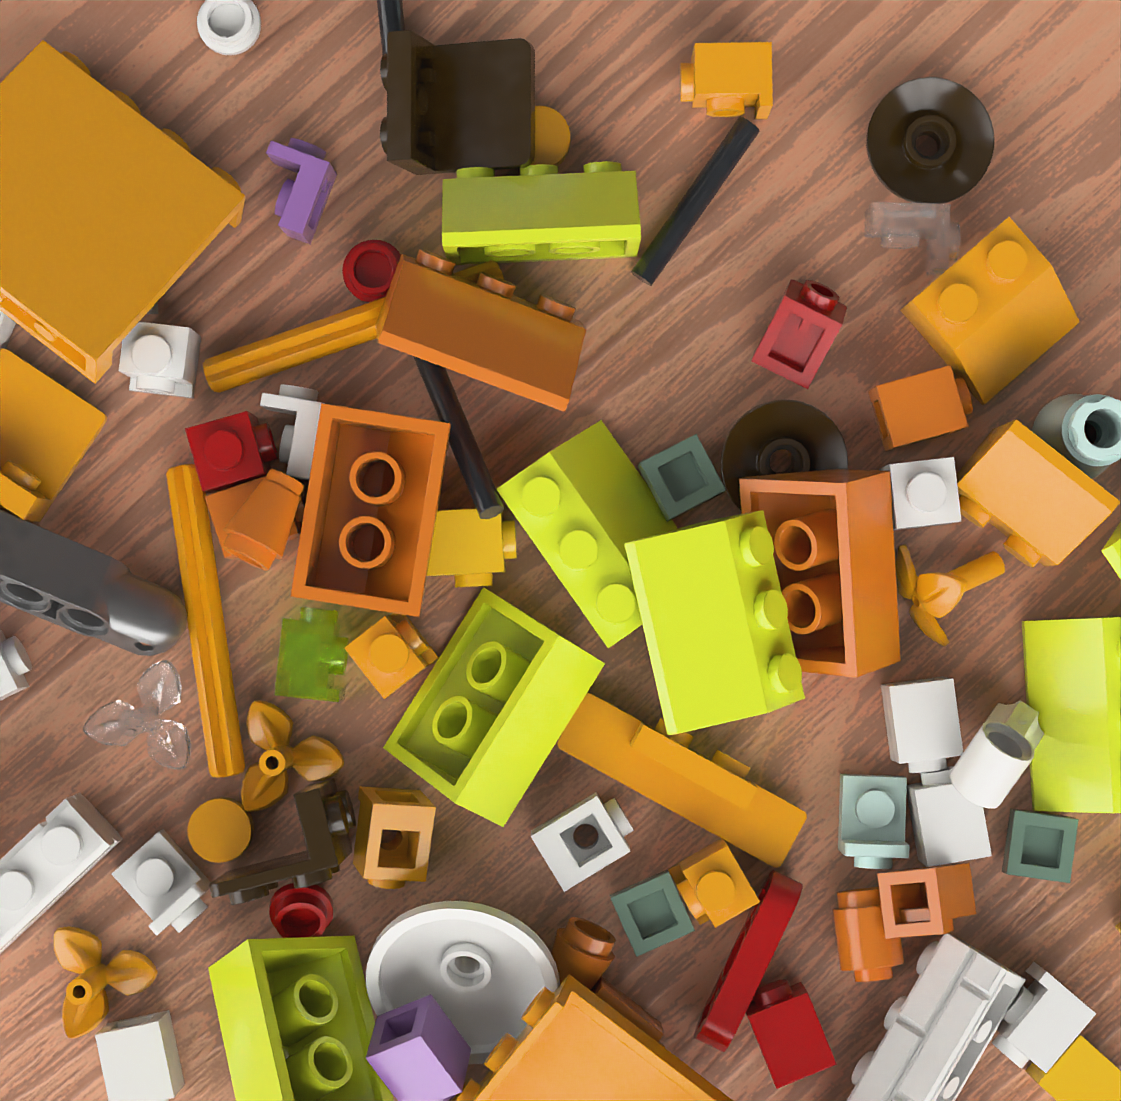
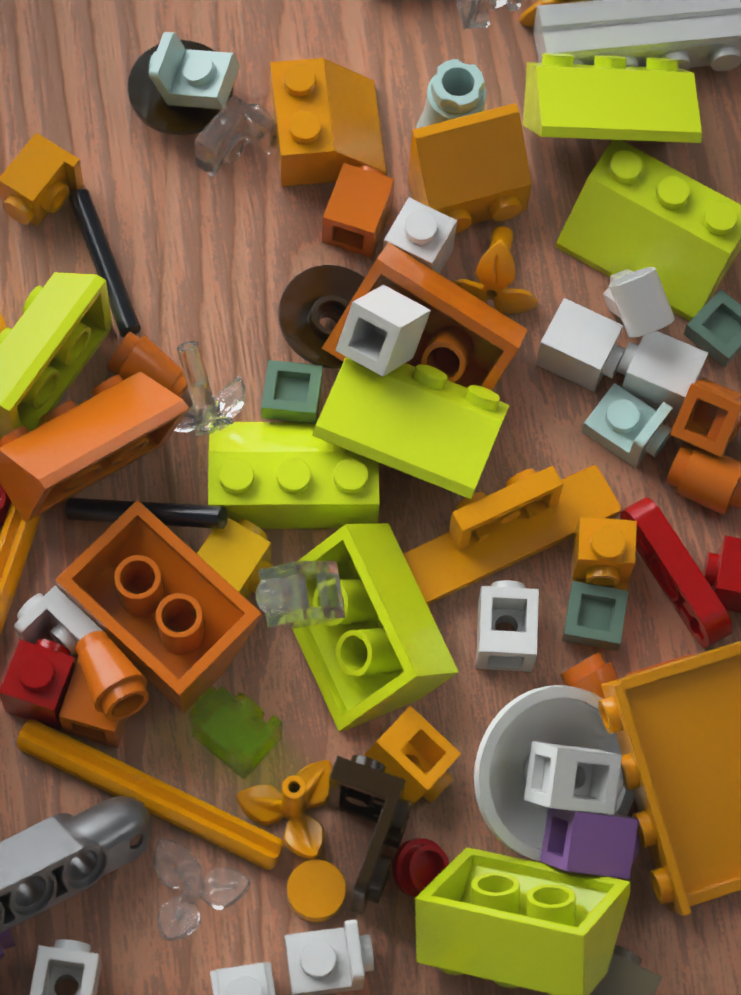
camera: 65 degrees left, 20 degrees down
(391, 653) = (274, 670): light orange brick -> none
(452, 625) = (285, 596): none -> clear brick
(455, 1010) = (573, 778): none -> white brick
(605, 406) = (207, 412): none -> clear plant
(611, 326) = (143, 355): none -> orange cone
(773, 541) = (382, 330): none -> white brick
(801, 332) = (249, 250): red bracket -> none
(942, 148) = (192, 76): none -> light aqua bracket

